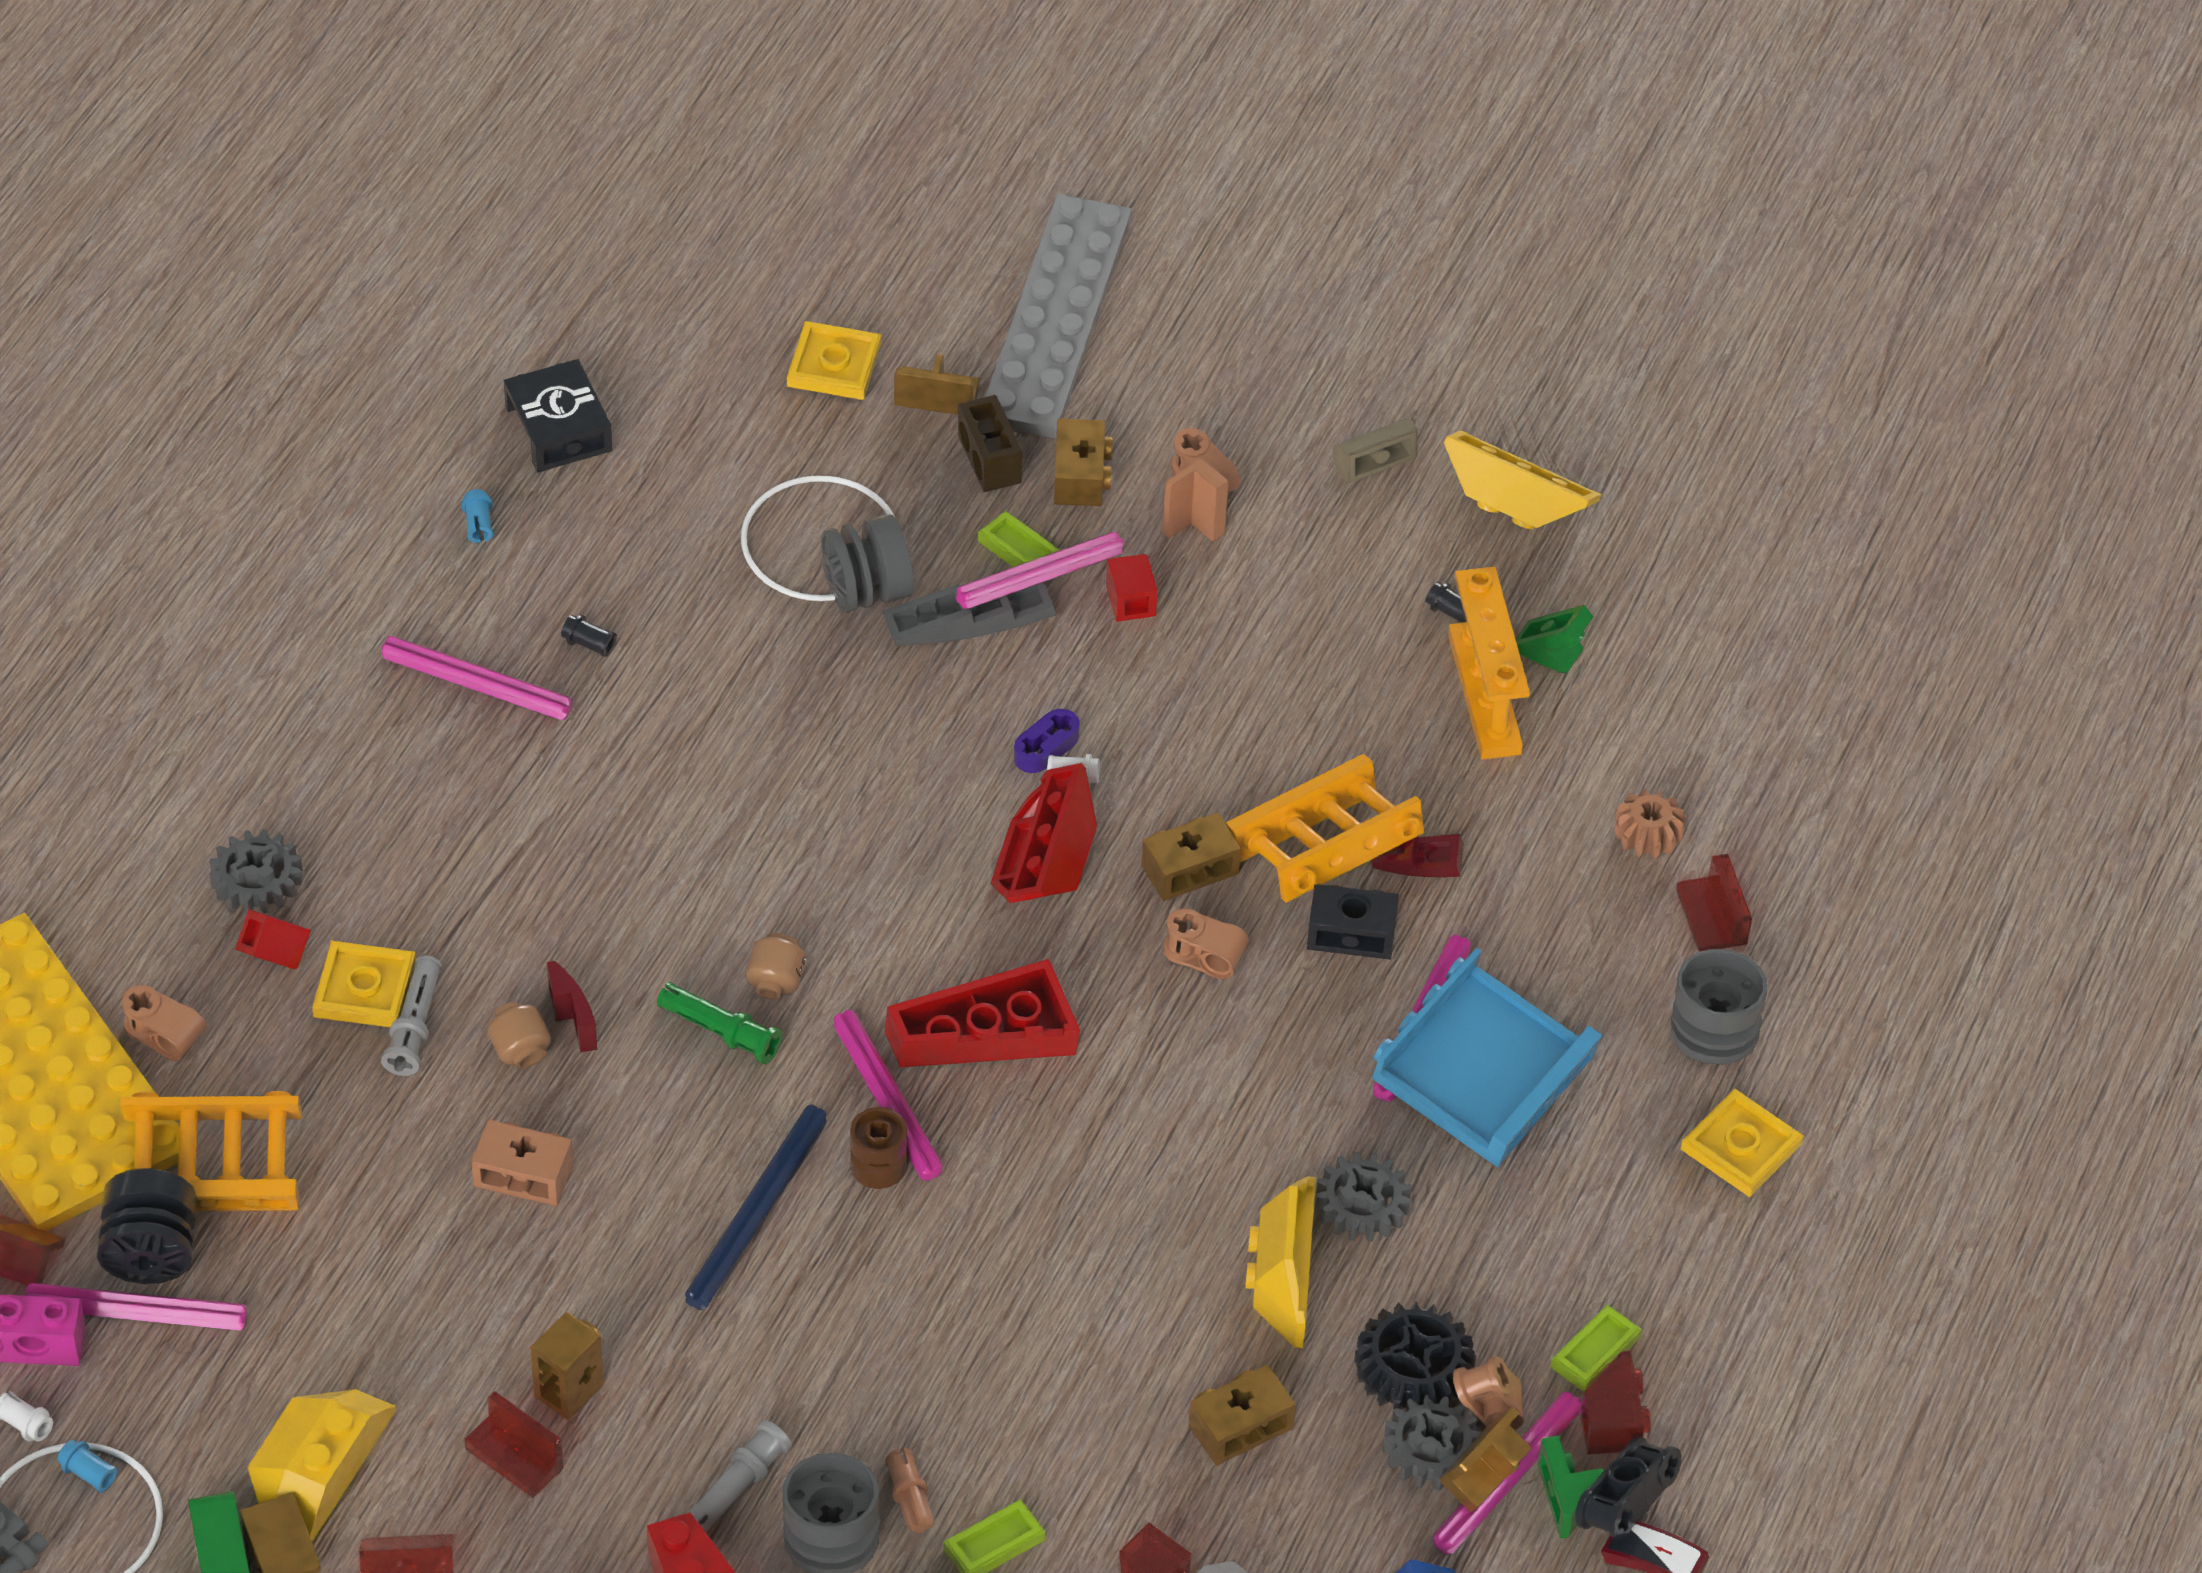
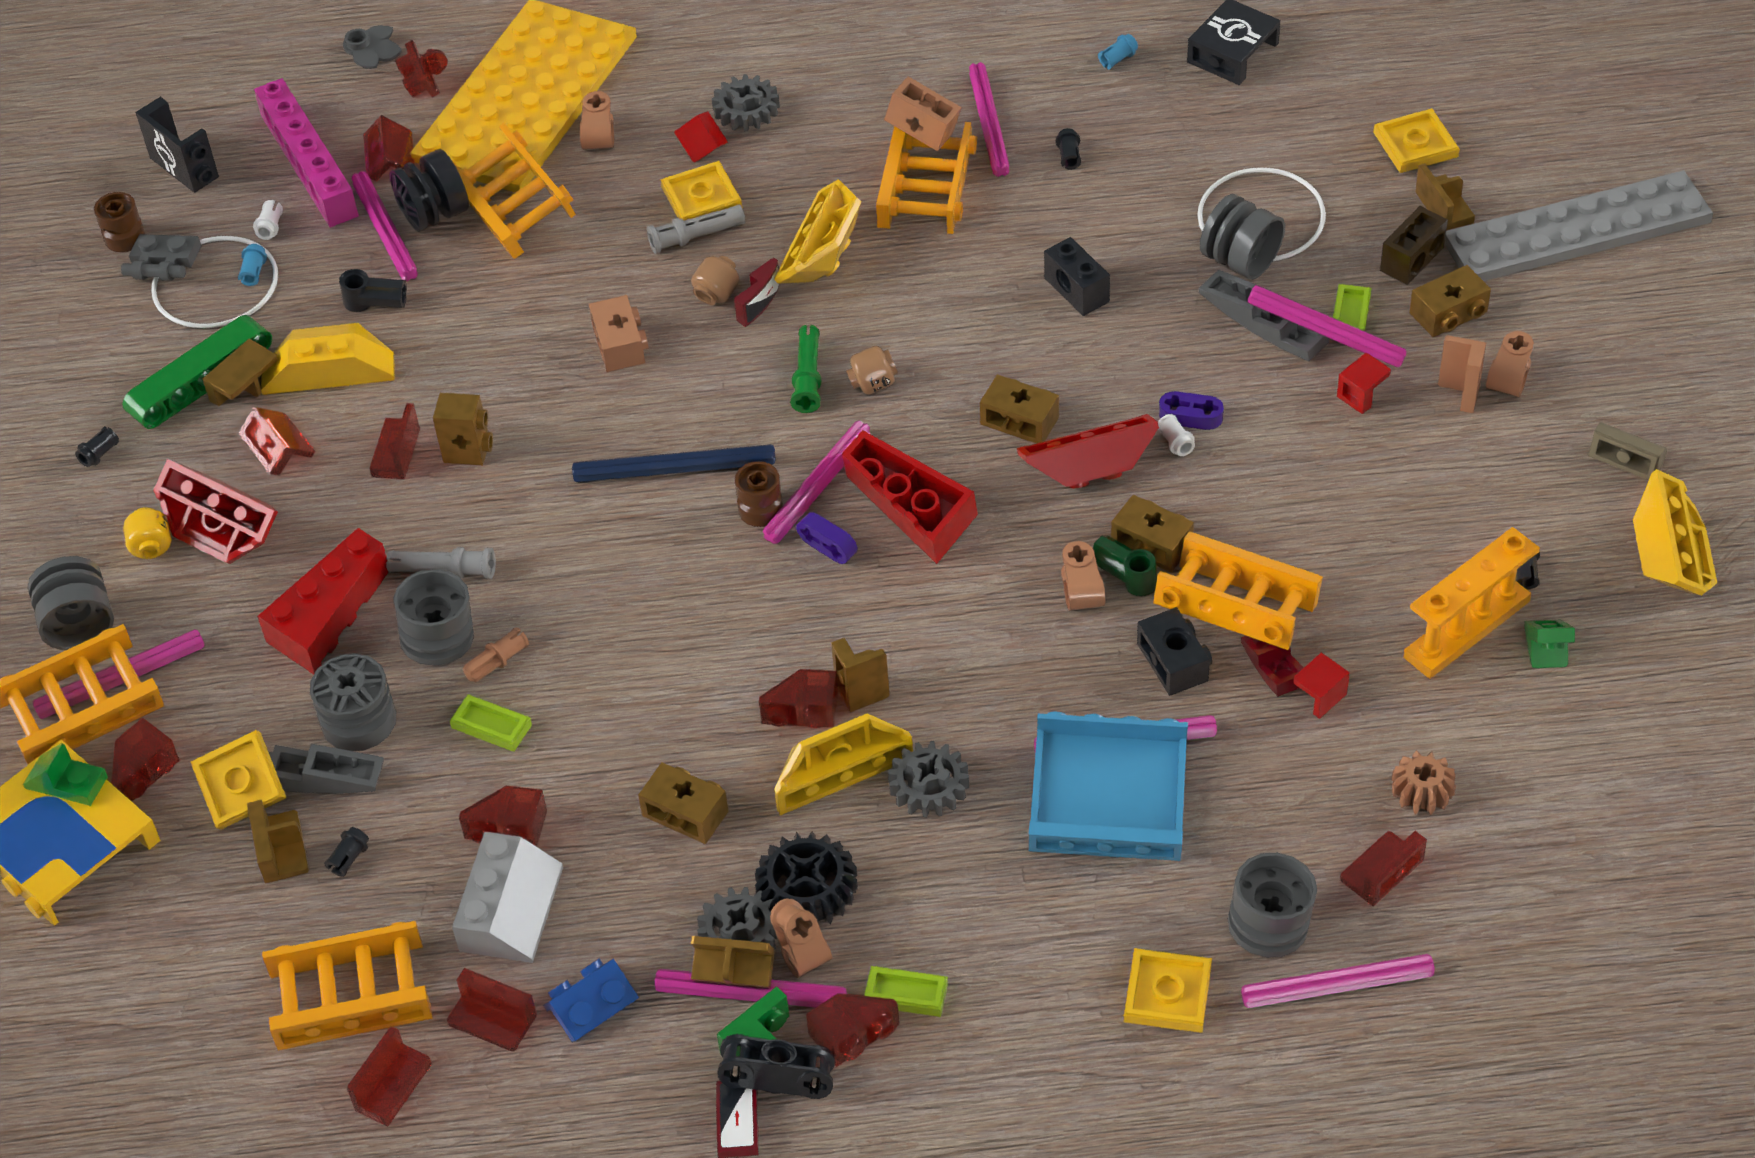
camera: 65 degrees right, 0 degrees up
(248, 1363) = (361, 291): none -> black piece
(465, 716) = (922, 113): none -> nougat brick
(511, 807) = (895, 183): none -> light orange fence
(551, 896) = (821, 236): none -> yellow wedge
(791, 727) = (1077, 276): none -> black brick
(936, 873) = (1019, 409): none -> pearl gold brick
(979, 1123) = (826, 538): none -> dark purple beam
(1185, 1246) = (802, 700): none -> clear red slope
(1197, 1184) = (860, 676): none -> pearl gold panel
(1215, 896) = (1131, 566): none -> dark green piece
(1482, 827) = (1324, 682): none -> red panel
(1816, 1014) = (1337, 981): none -> dark pink axle

